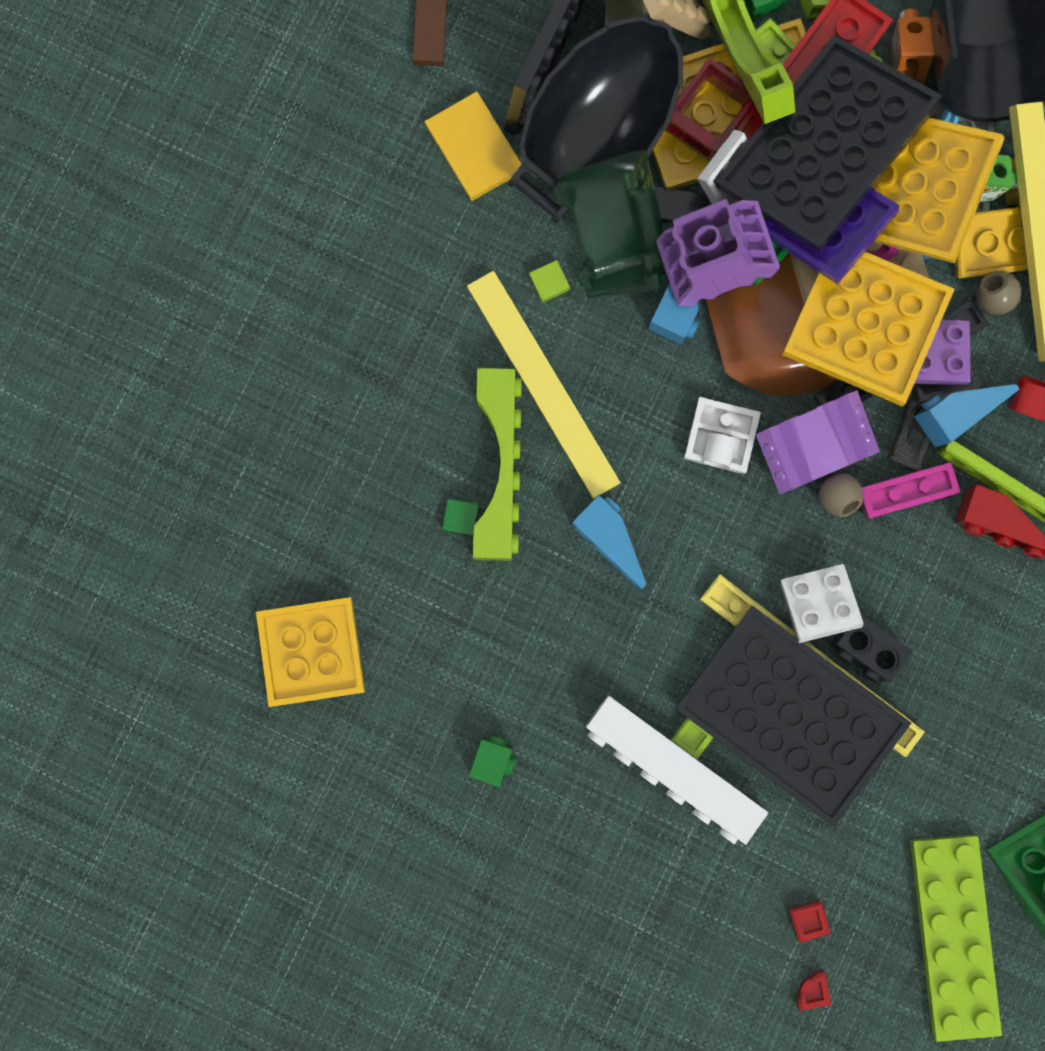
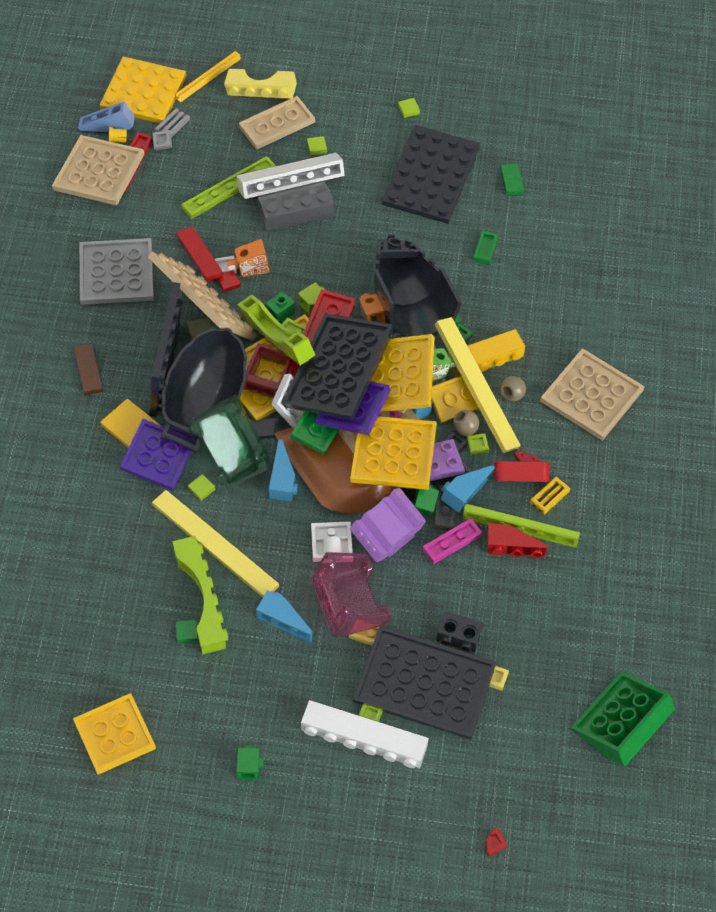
camera: 25 degrees left, 25 degrees down
(490, 213) = (155, 458): none -> dark purple plate
(717, 251) = (294, 437): medium lavender slope -> none
(719, 539) = (346, 594): none -> clear pink windscreen
(809, 921) = (477, 801): red tile -> none
(821, 603) = (420, 612): white plate -> none
(841, 494) = (412, 552): dark tan piece -> none
(889, 416) = (425, 500): none -> green brick
(955, 938) = (570, 784): lime plate -> none
(1003, 332) = (477, 444): none -> lime tile

